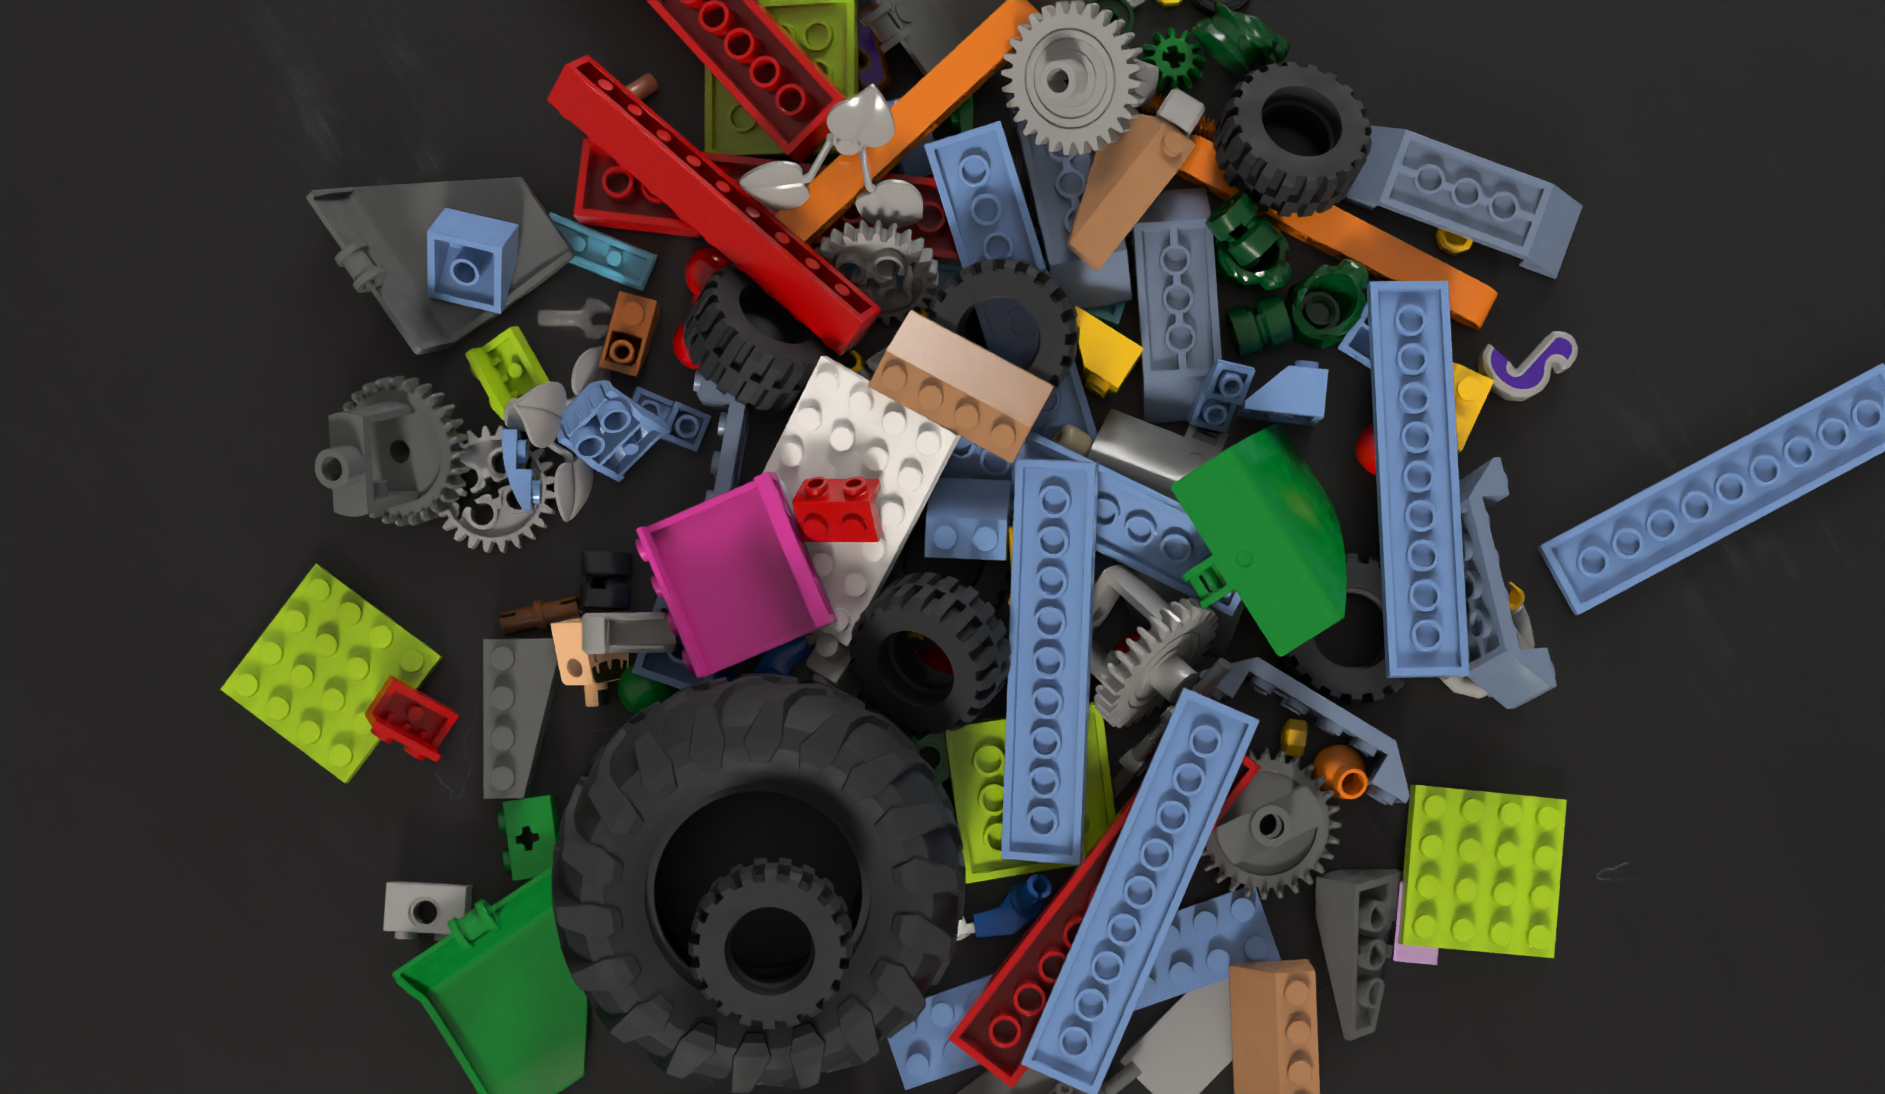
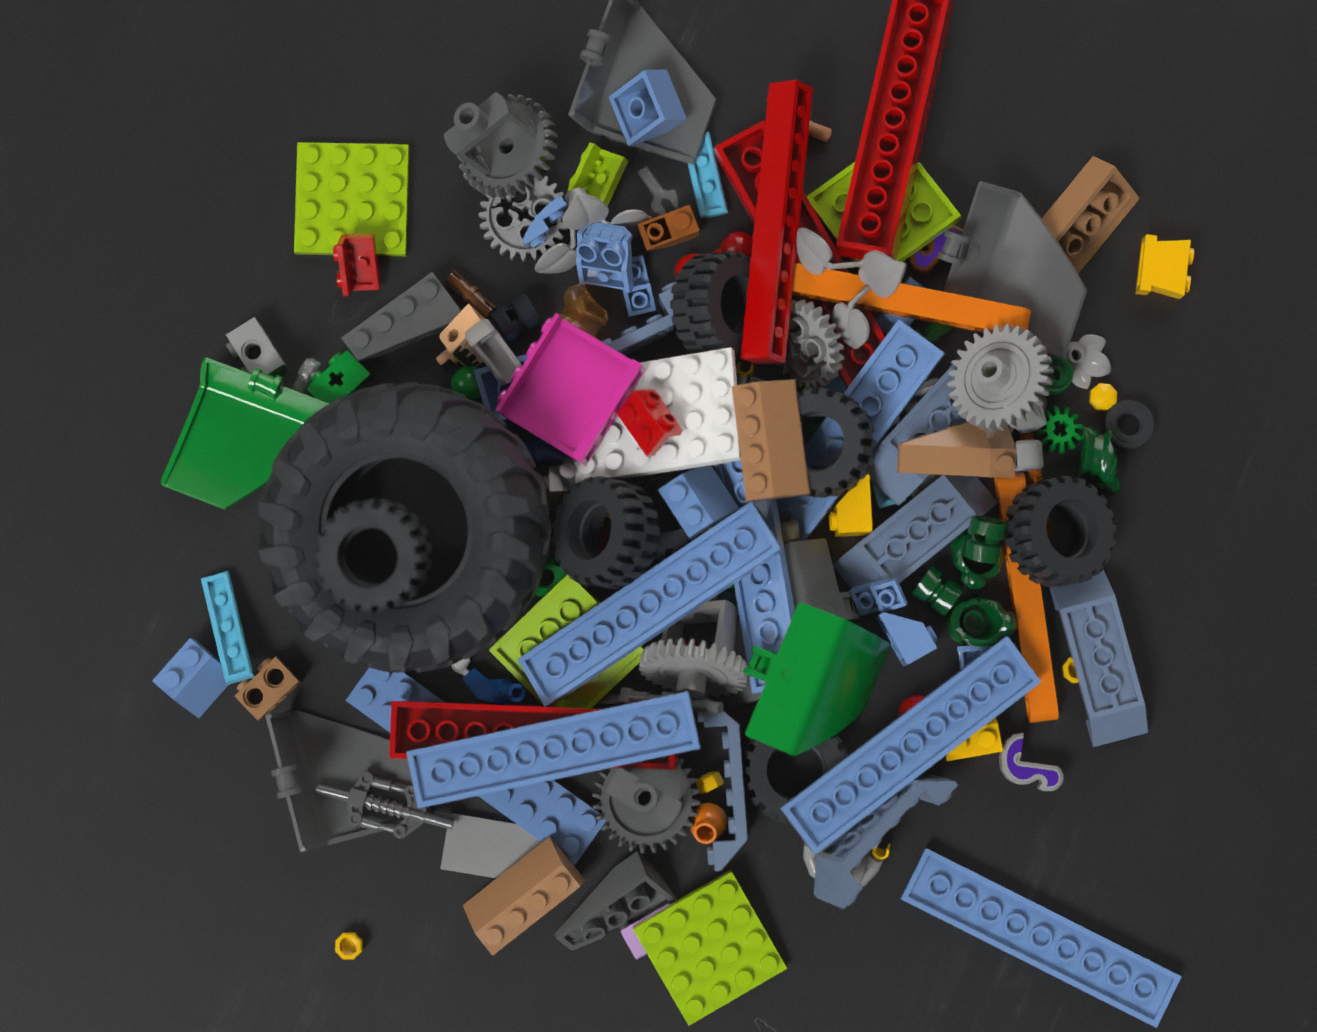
camera: 55 degrees right, 0 degrees up
(493, 866) = (306, 371): none -> clear bar
(652, 498) = (583, 310): none -> clear orange piece

